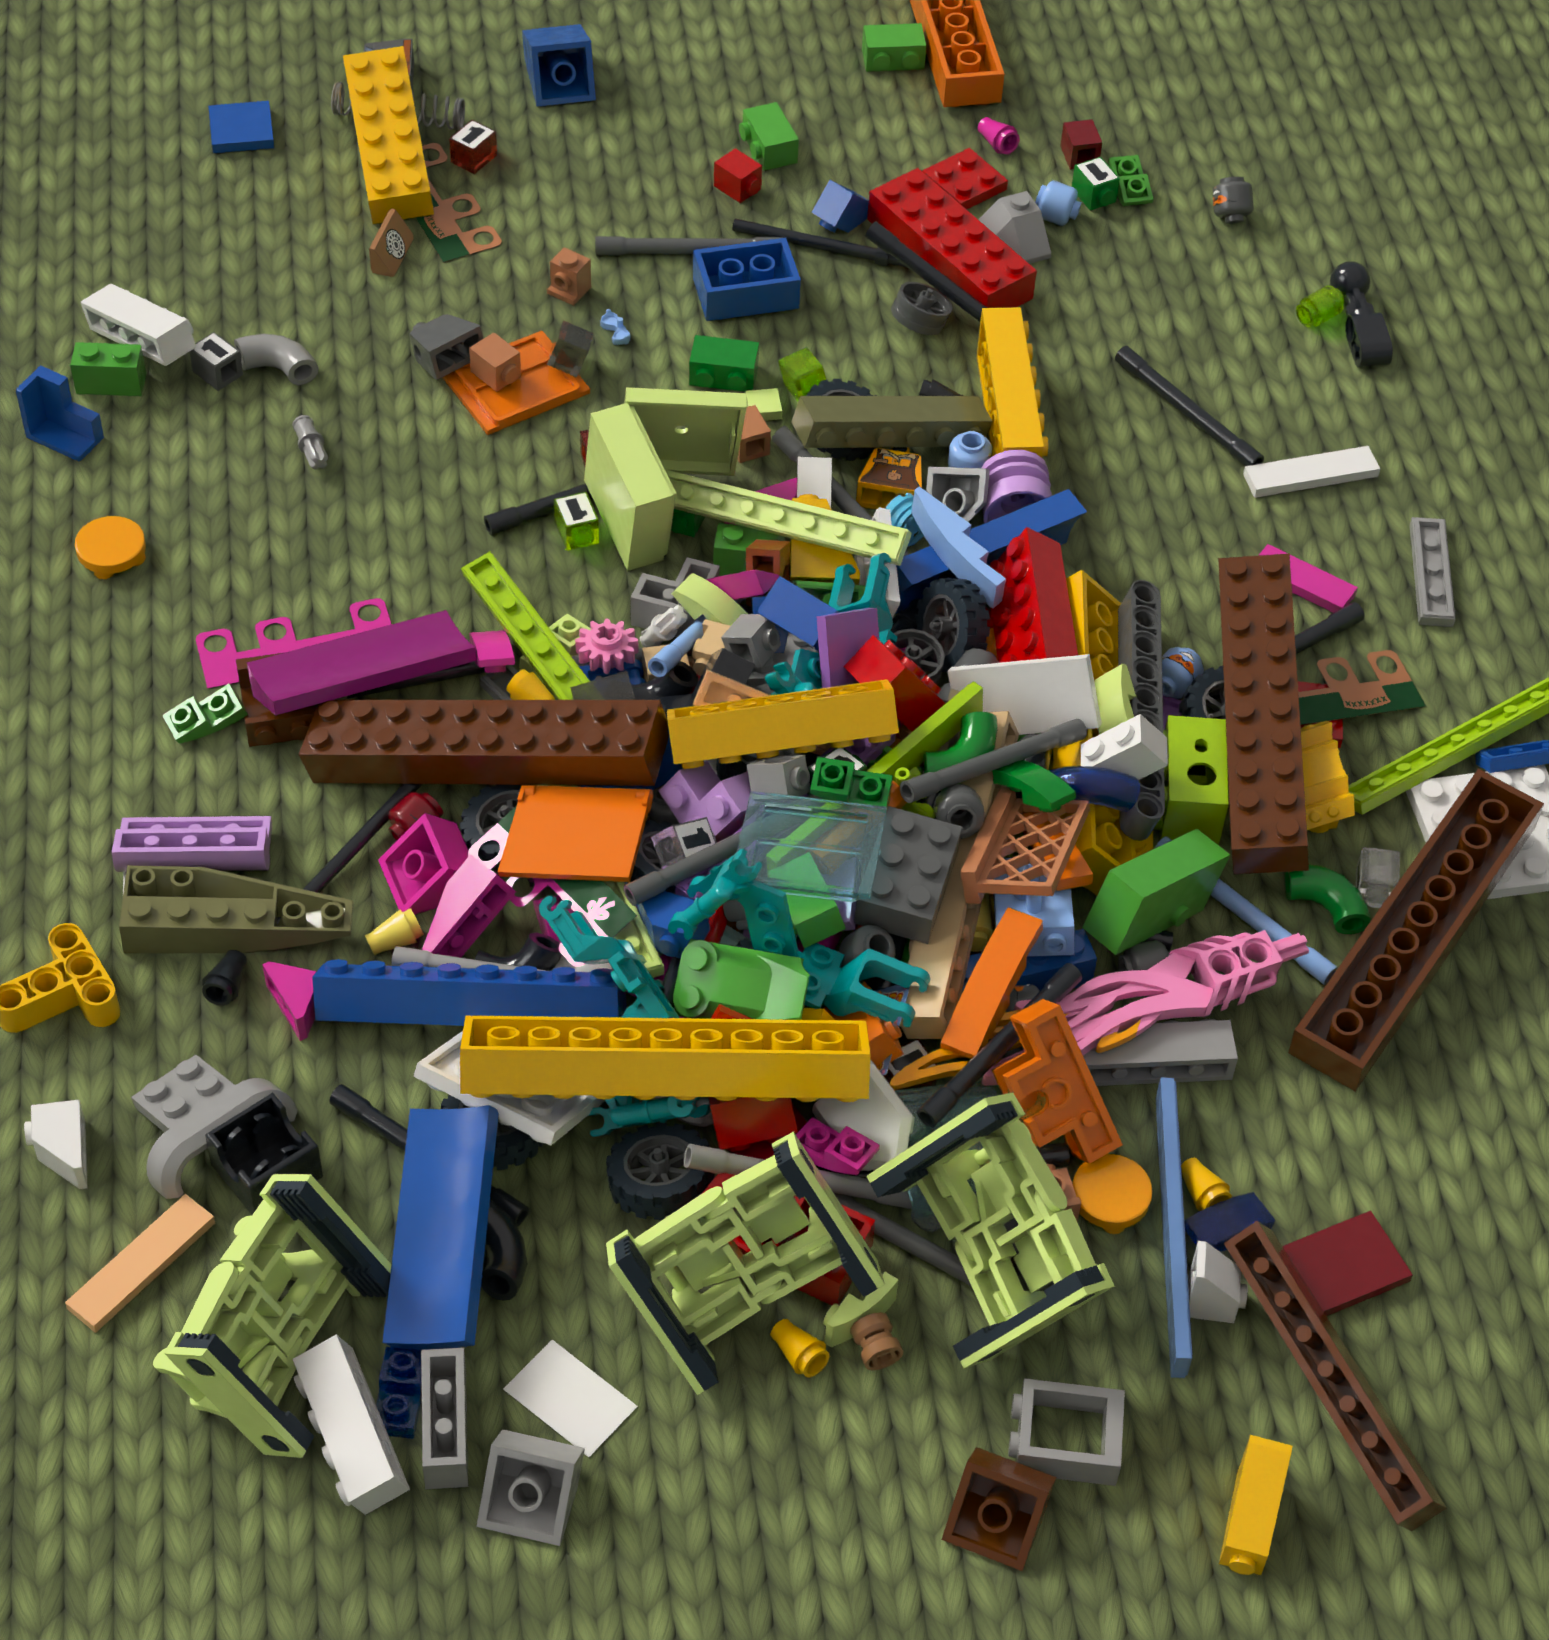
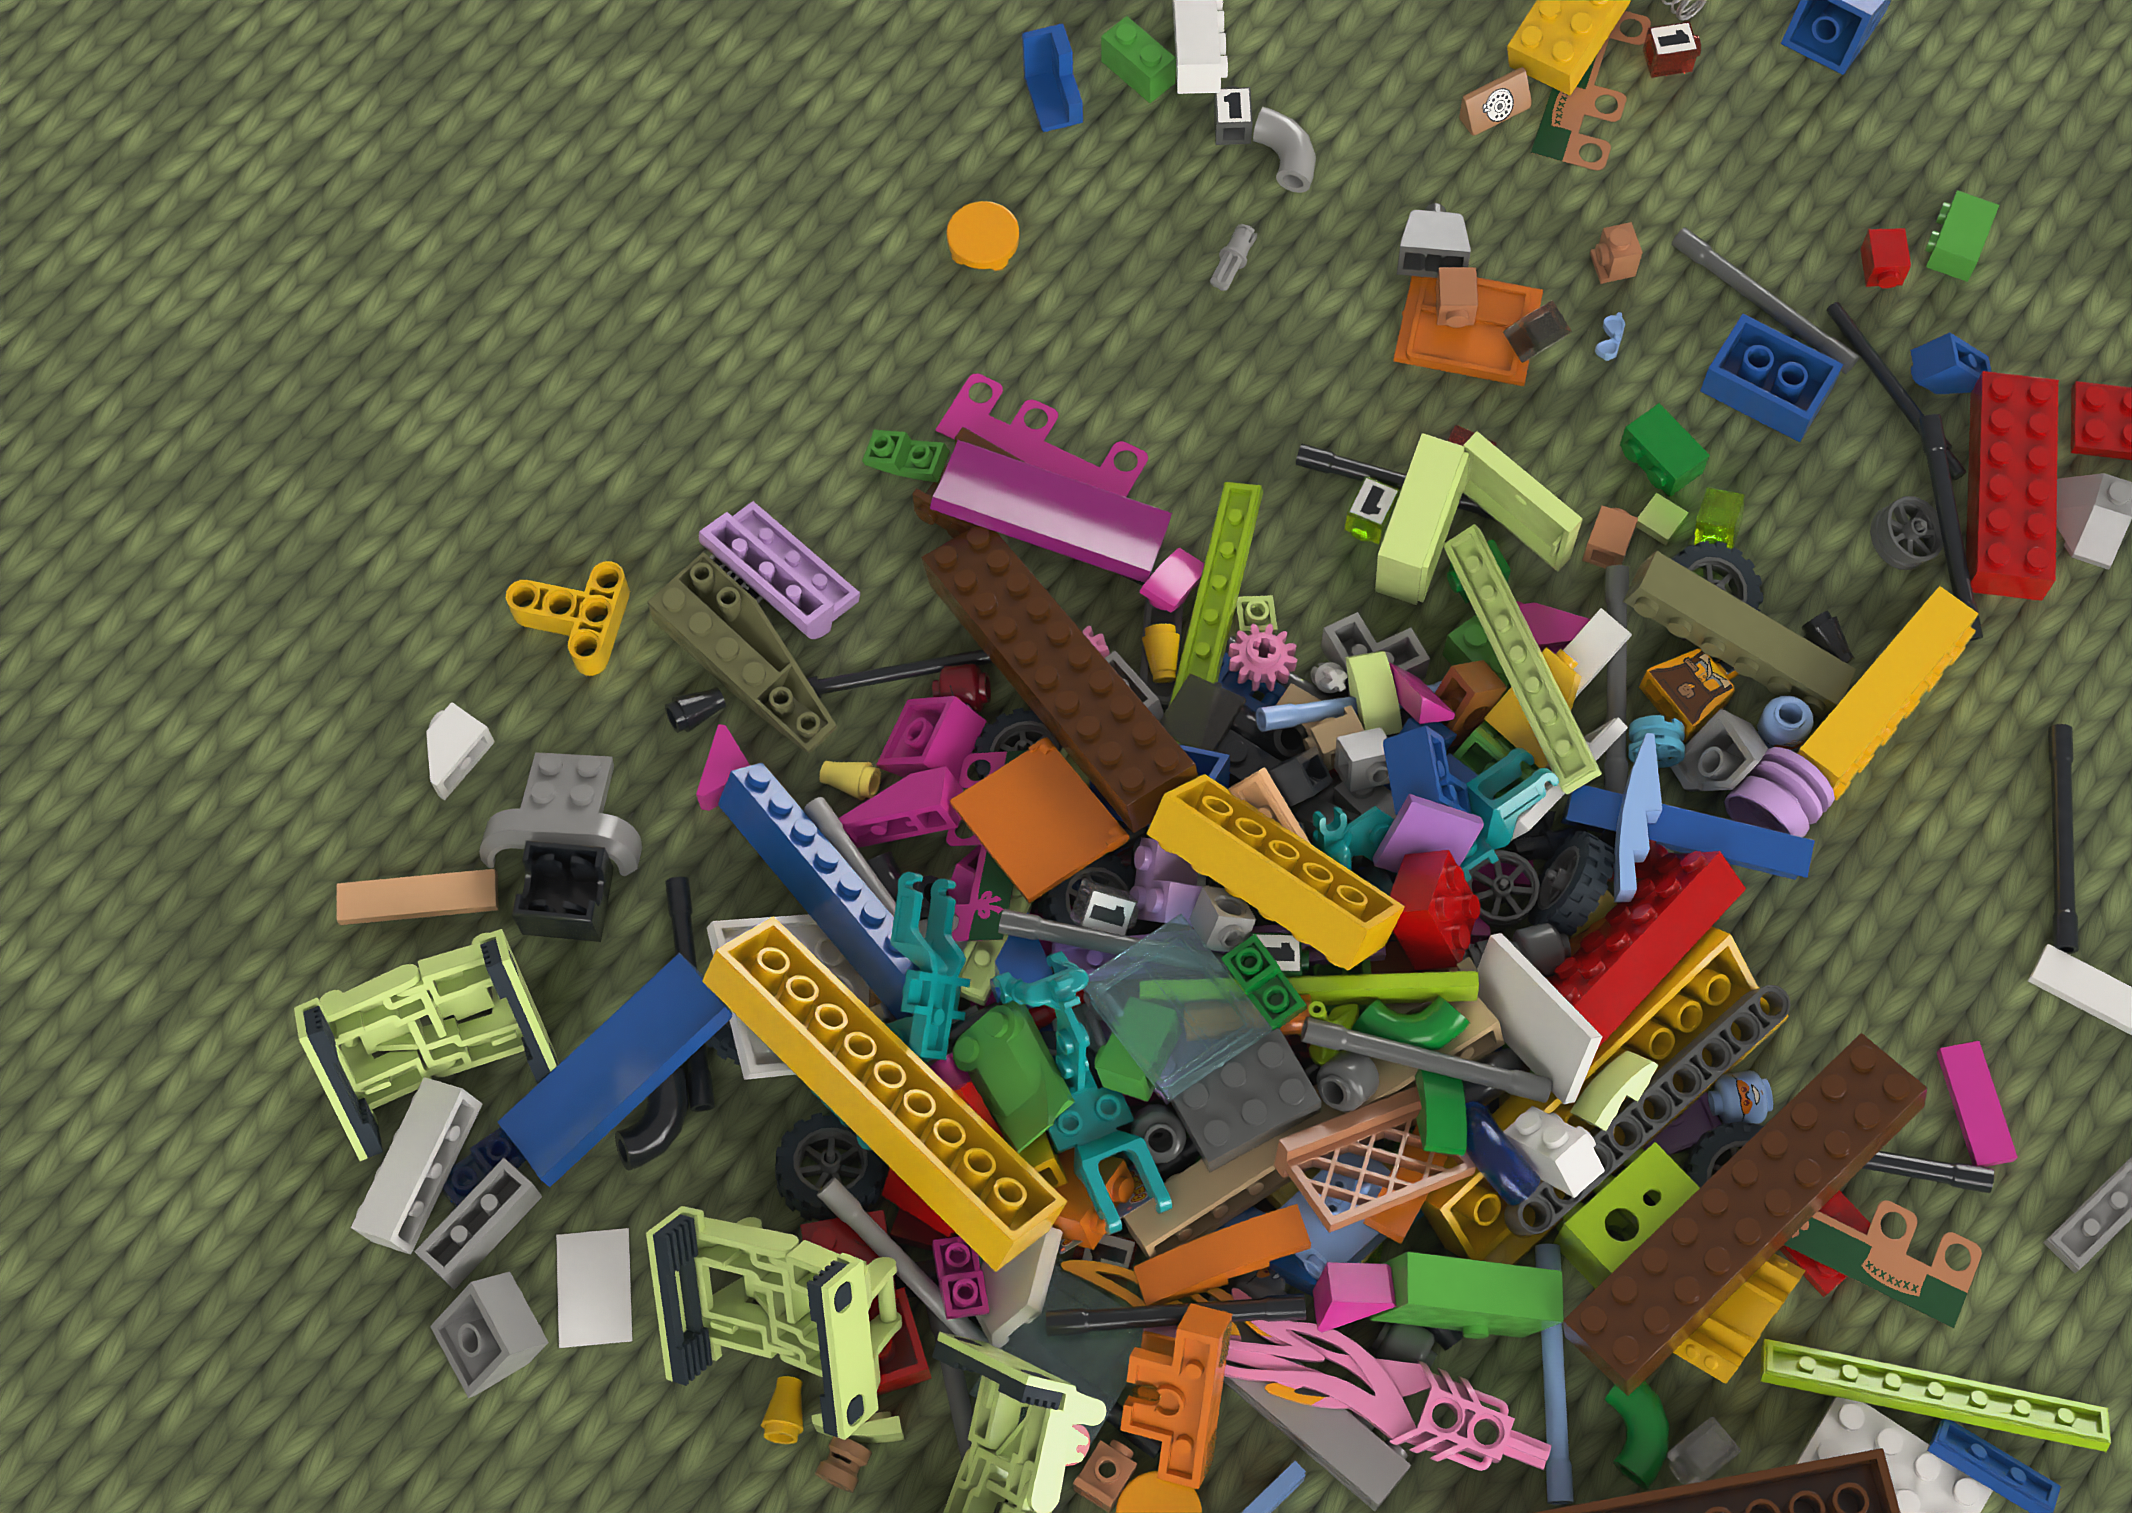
camera: 50 degrees right, 15 degrees up
(1095, 935) = (1352, 1293): none -> dark pink slope

